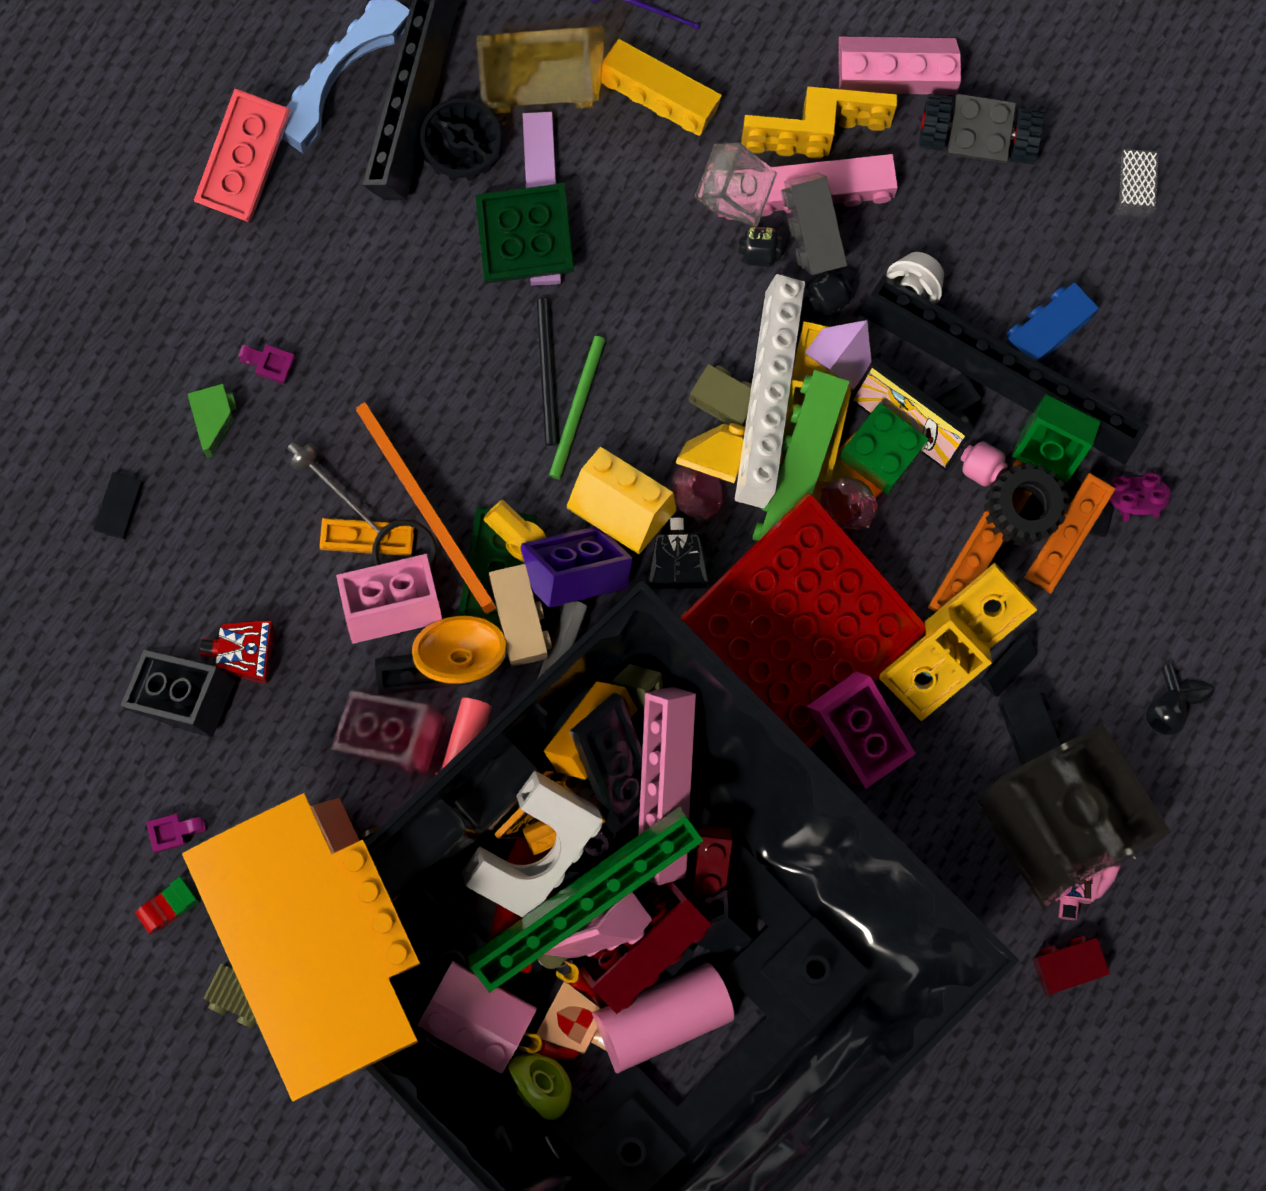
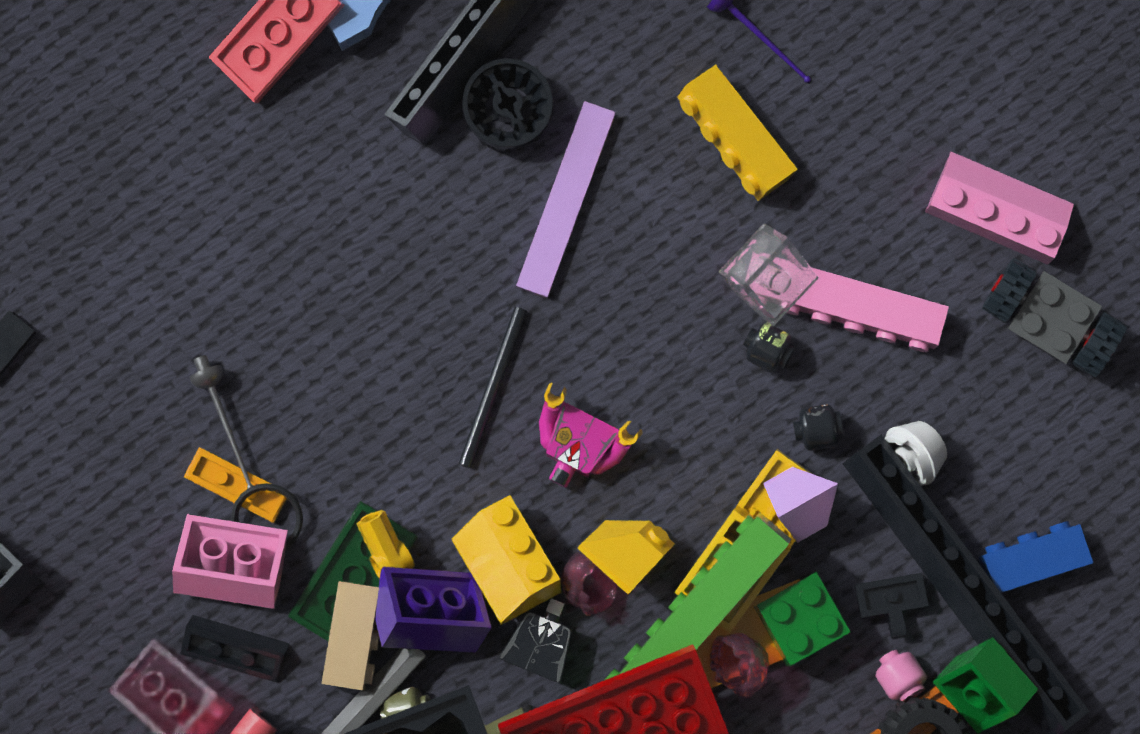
camera: 25 degrees right, 5 degrees up
(212, 415) = (132, 294): bright green slope -> none
(242, 650) = (60, 552): torso -> none
(271, 363) = (214, 263): magenta plate -> none
(425, 508) = (306, 483): orange tile -> none
(459, 649) = (276, 637): light orange dish -> none
(524, 233) = (530, 233): dark green plate -> none
(541, 67) = (622, 62): clear yellow windscreen -> none
(577, 407) = (505, 440): bright green piece -> none
(638, 382) = (579, 440): none -> dark pink torso
(721, 395) = (663, 492): olive brick -> none
(770, 392) = (707, 512): white brick -> none
(813, 223) = (830, 351): dark grey brick -> none
(816, 130) = (886, 240): yellow bracket -> none
(944, 430) = (868, 624): tile -> none

